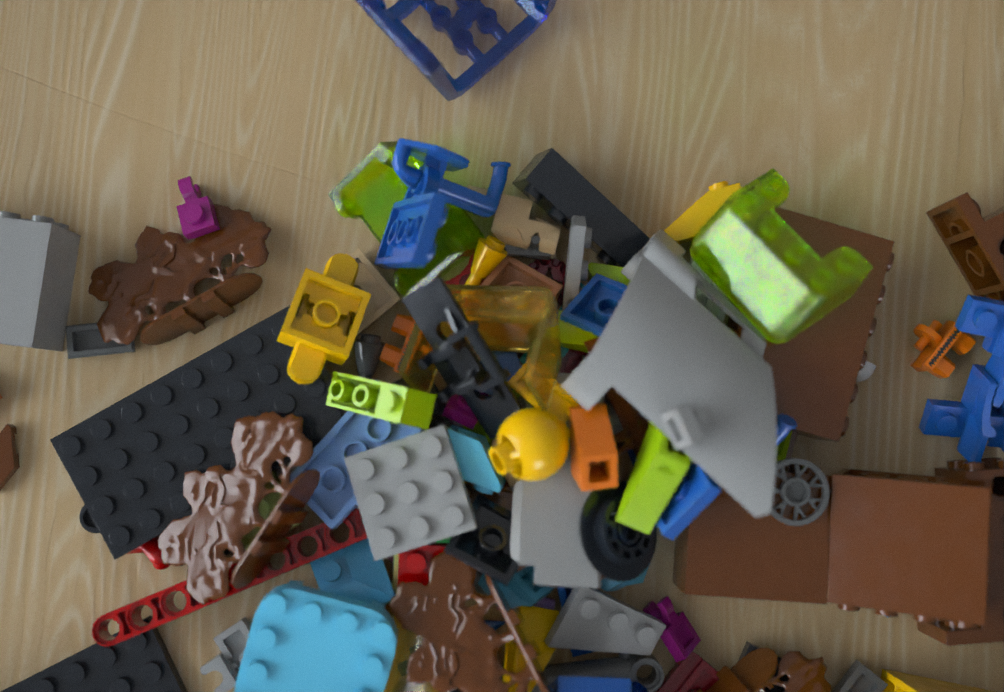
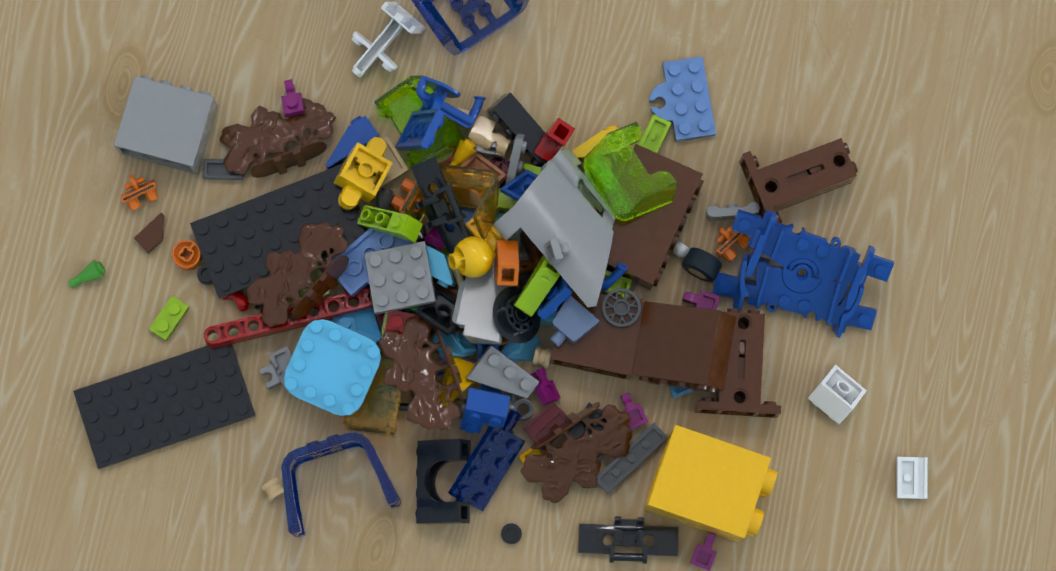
camera: 10 degrees right, 5 degrees down
(44, 596) = (169, 318): none -> lime plate
(54, 491) = (187, 255): none -> orange wheel
(308, 250) = (359, 131): none -> blue slope
(350, 56) = (400, 20): none -> white piece
(630, 222) = (553, 140): none -> red slope
(662, 578) = (542, 356): none -> tan wheel
(720, 535) = (572, 322): none -> sand blue torso
(798, 176) = (655, 133): none -> lime plate
(822, 645) = (635, 411): none -> magenta plate
(828, 123) = (685, 99): none -> medium blue plate
(903, 390) = (702, 264): none -> black wheel
(909, 449) = (704, 300): none -> magenta plate
(934, 294) = (714, 213): none -> light grey plate

